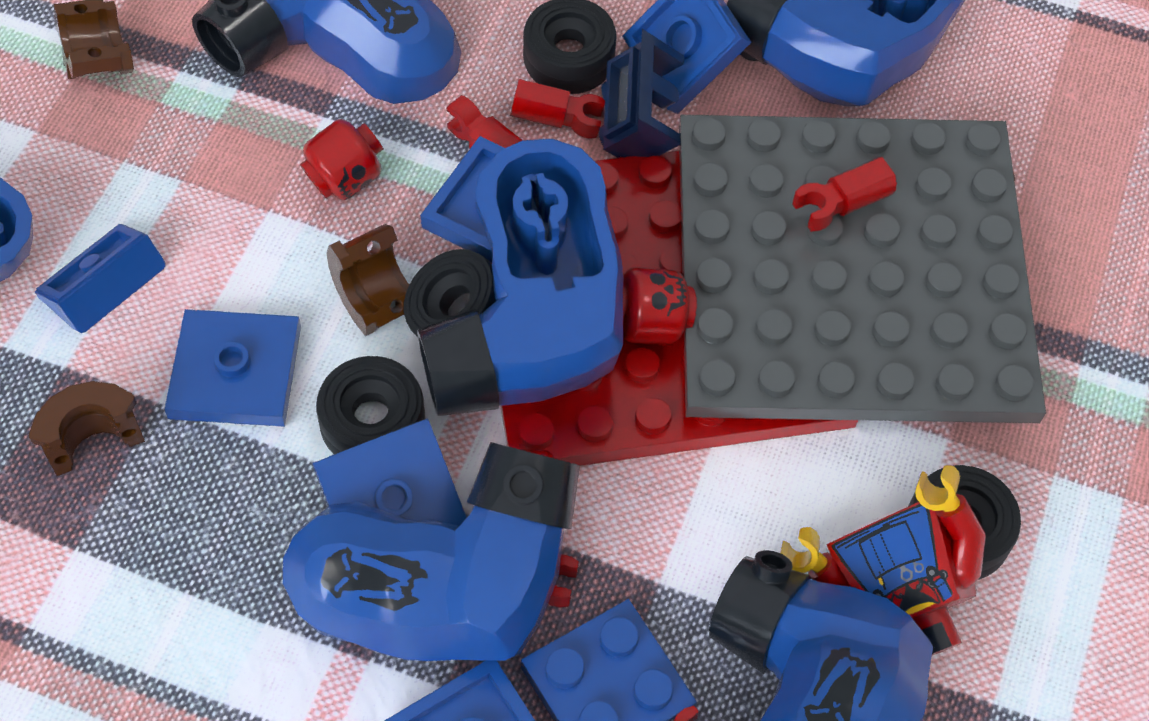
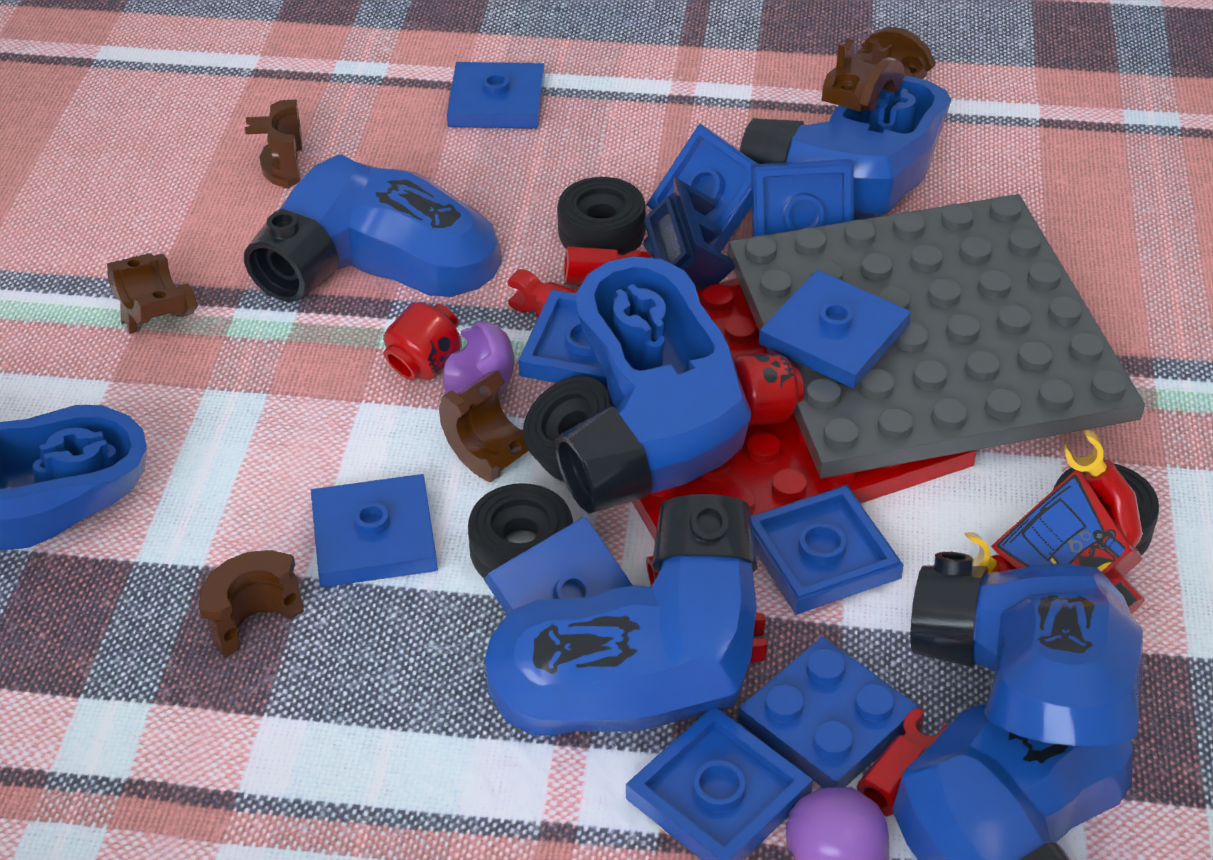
camera: 10 degrees left, 15 degrees down
(101, 277) = (217, 483): blue slope -> none
(389, 200) = (486, 351): none -> medium lavender hair
(663, 497) = (823, 549): none -> blue plate
(749, 253) = (834, 328): none -> blue plate
(773, 77) = (801, 195): none -> blue plate
(846, 192) = (904, 264): red bar -> none

